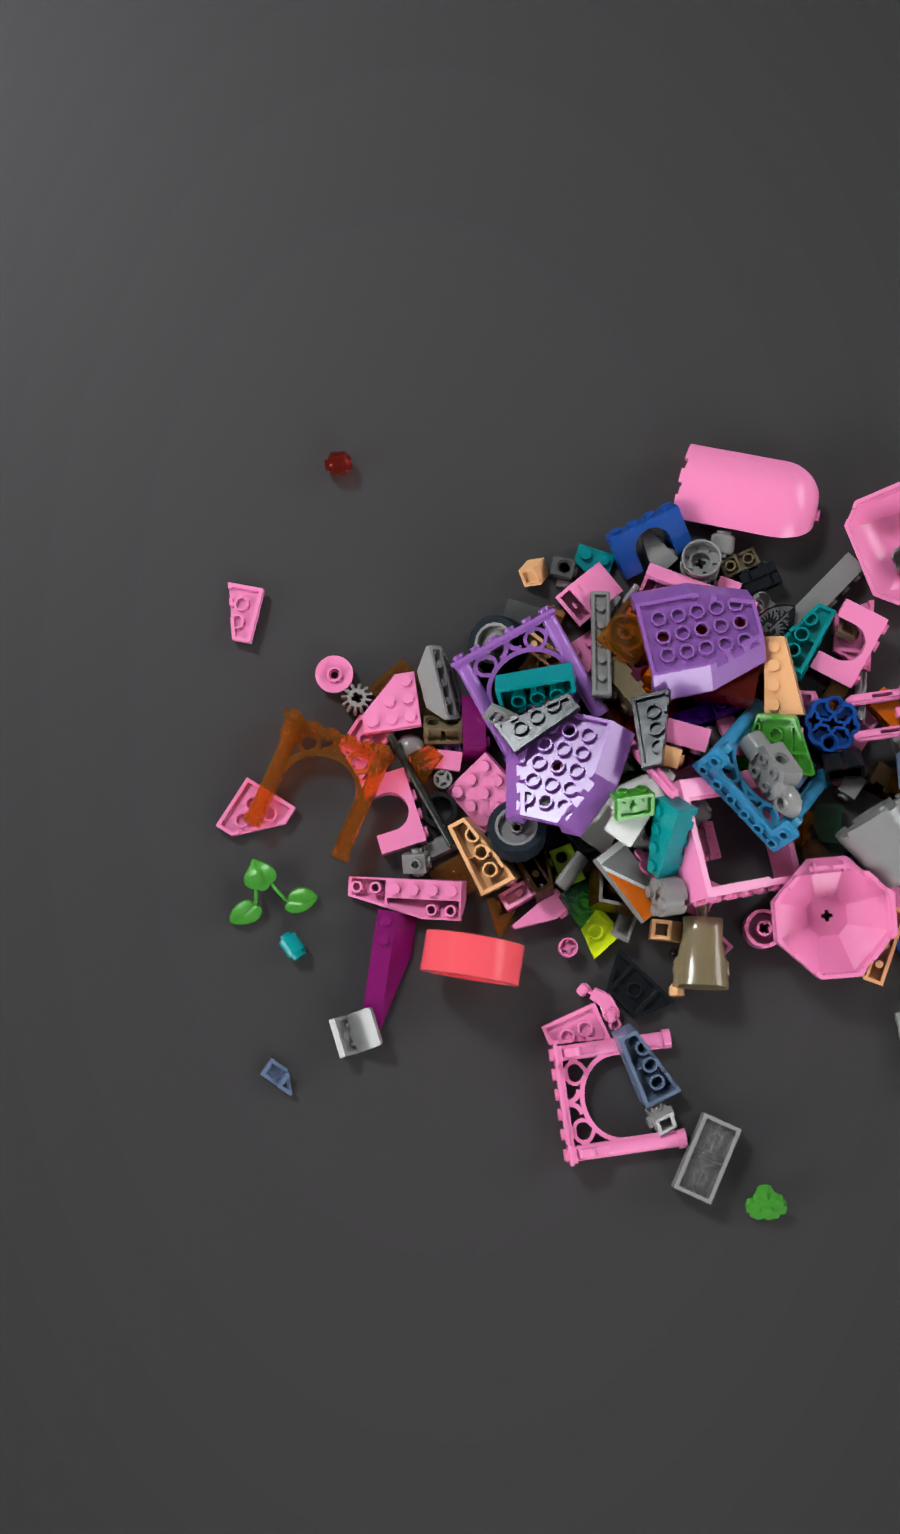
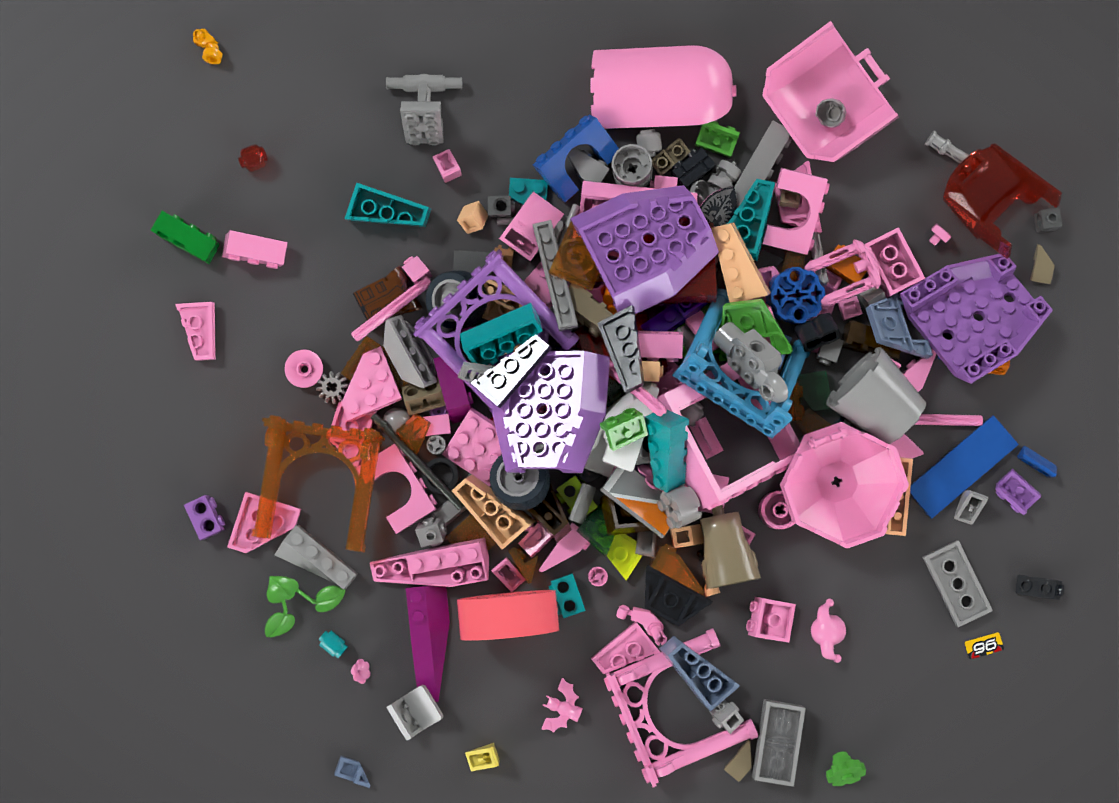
camera: 20 degrees left, 5 degrees up
(196, 792) = (200, 520): none -> medium lavender brick
(255, 521) = (185, 236): none -> green wedge
(293, 854) = (310, 554): none -> light grey wedge
(312, 979) = (360, 671): none -> bright pink plant
(316, 549) = (254, 249): none -> bright pink wedge
(325, 355) = (211, 52): none -> light orange arm
(409, 1096) = (483, 757): none -> light yellow slope
(431, 627) = (384, 291): none -> reddish brown piece
(434, 637) = (391, 309): none -> bright pink axle
(449, 540) = (381, 207): none -> teal wedge
(467, 609) = (416, 269): none -> bright pink slope
(480, 921) = (508, 574): none -> bright pink slope
(503, 1070) = (566, 708): none -> bright pink animal
(511, 463) = (423, 117): none -> light grey plate
(522, 518) = (447, 165): none -> bright pink slope
(538, 958) = (571, 594): none -> teal brick
(645, 956) = (673, 566): none -> clear orange slope
(663, 1169) = (741, 762): none -> dark tan slope
(728, 1034) = (771, 619): none -> bright pink plate
(782, 1061) = (828, 631): none -> bright pink piece
(790, 556) = (717, 138): none -> bright green bracket
(790, 592) = (726, 175): none -> light grey wheel
(880, 751) = (850, 308): none -> bright pink plate

